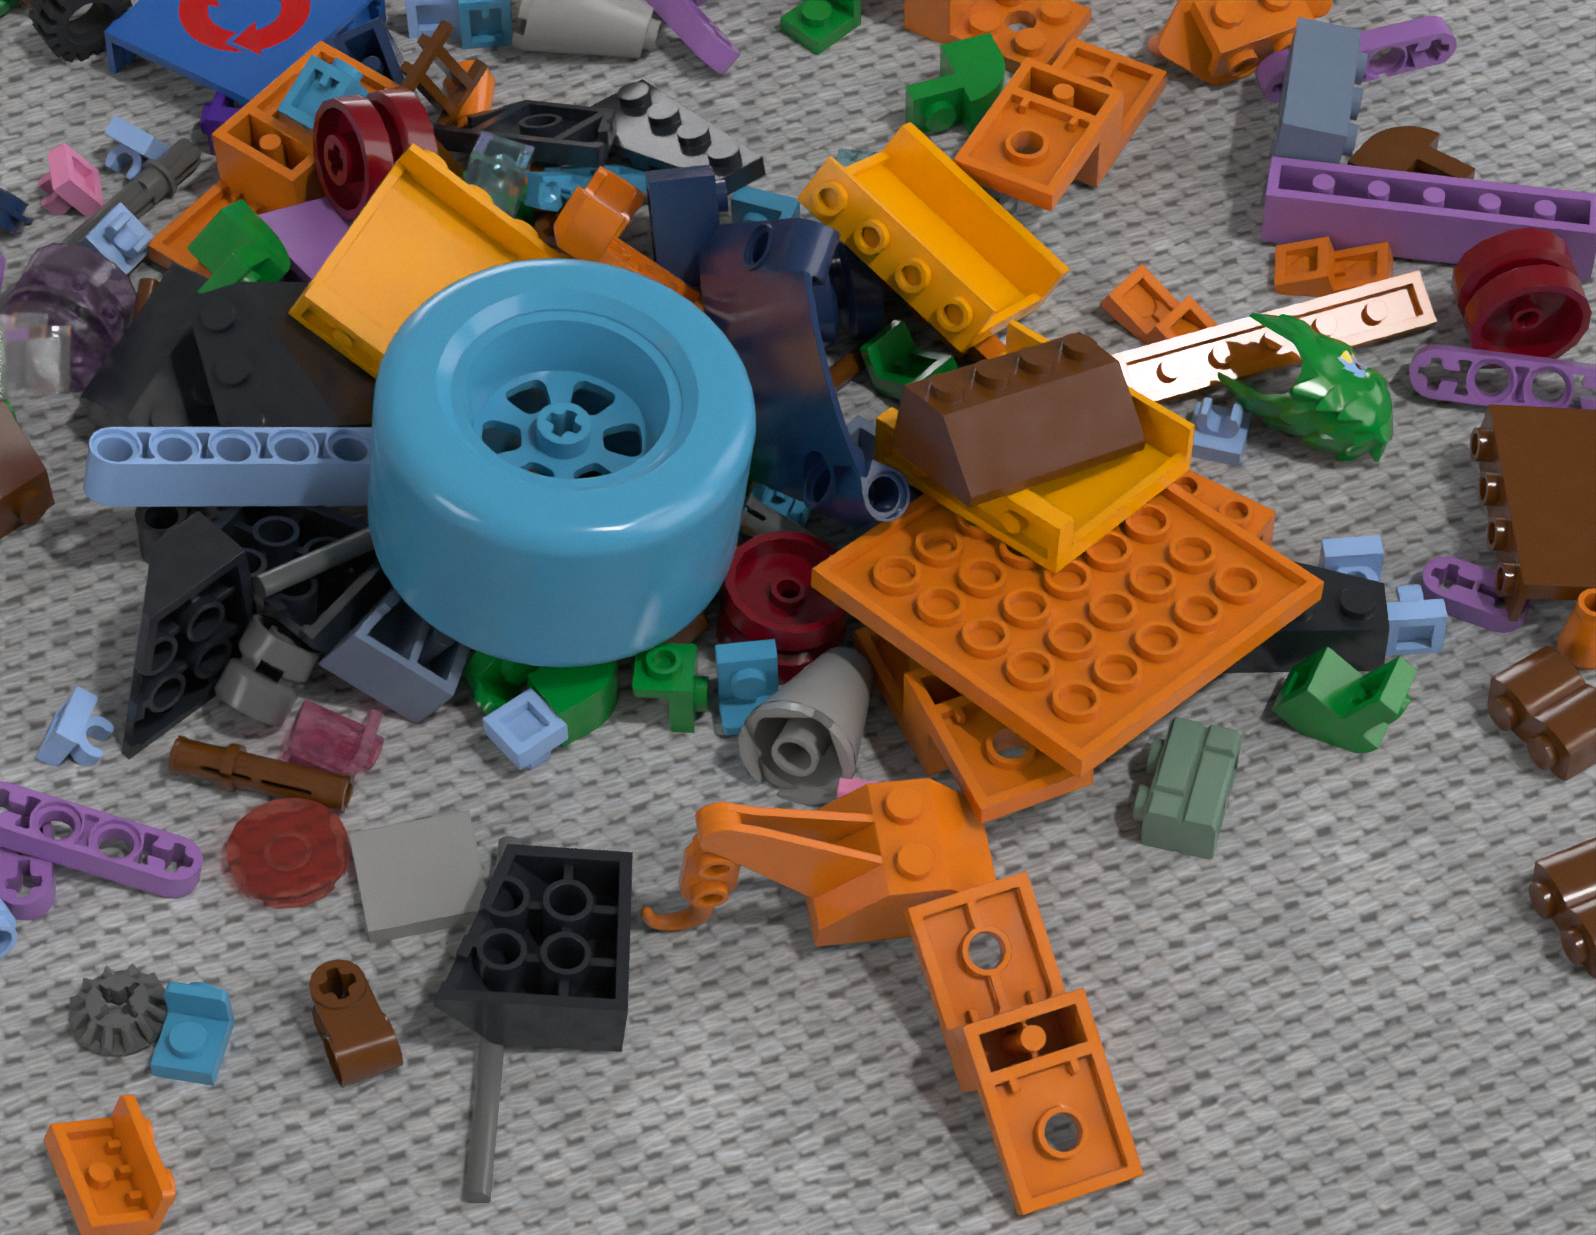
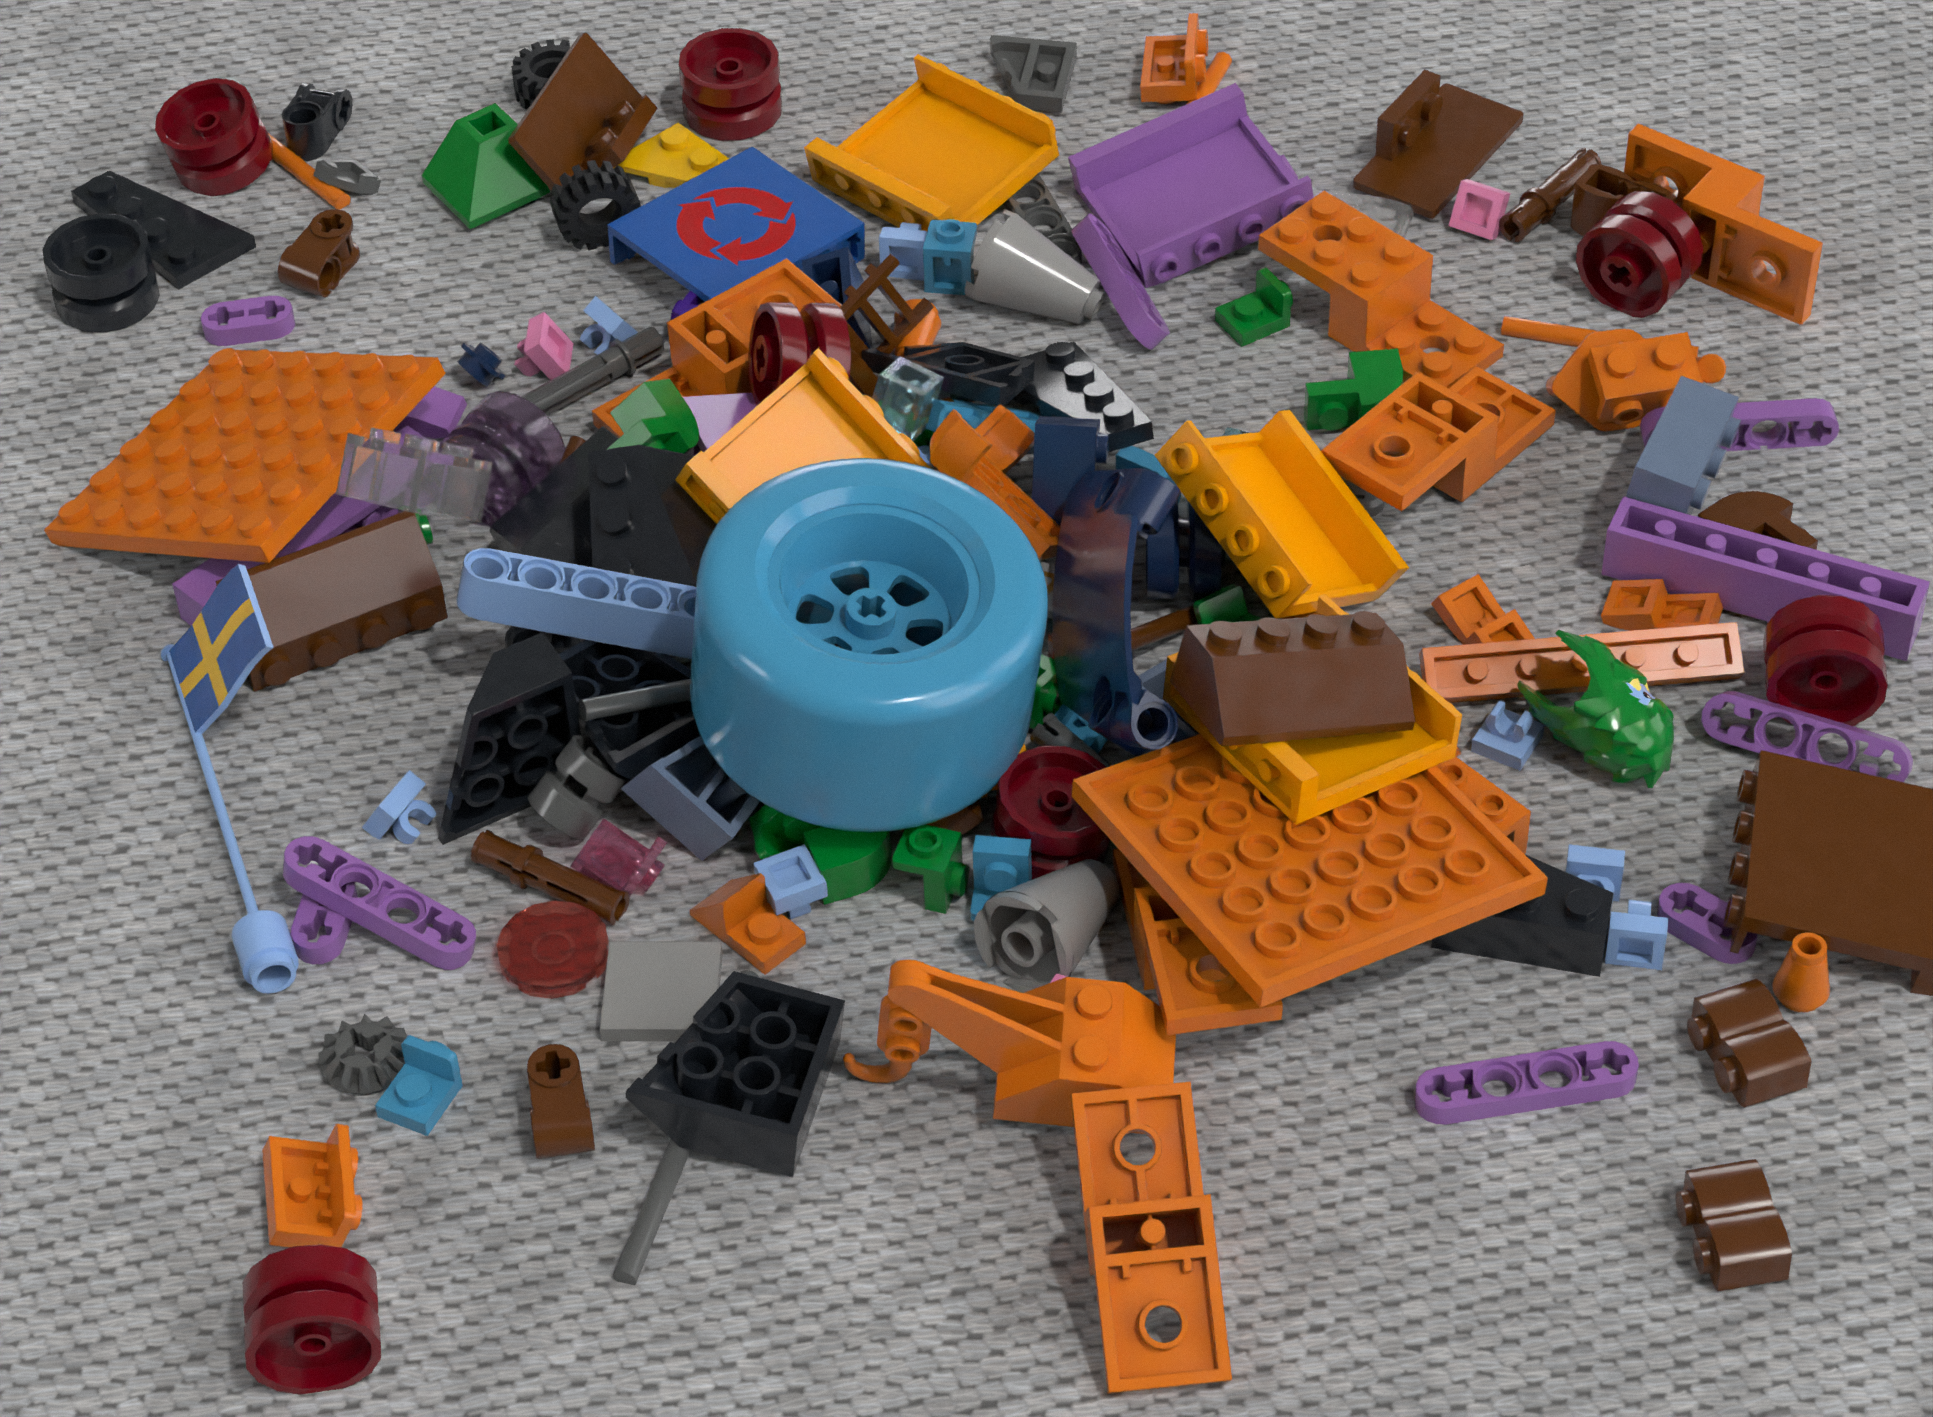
camera: 15 degrees right, 5 degrees down
(119, 238) = (568, 404): light blue tile -> none
(316, 84) = (767, 288): dark azure bracket -> none
(489, 784) = (748, 924): none -> orange slope
(1189, 787) = (1380, 1044): sand green brick -> none
(1339, 704) = (1545, 997): green brick -> none
(1339, 791) = (1523, 1075): none -> medium lavender beam

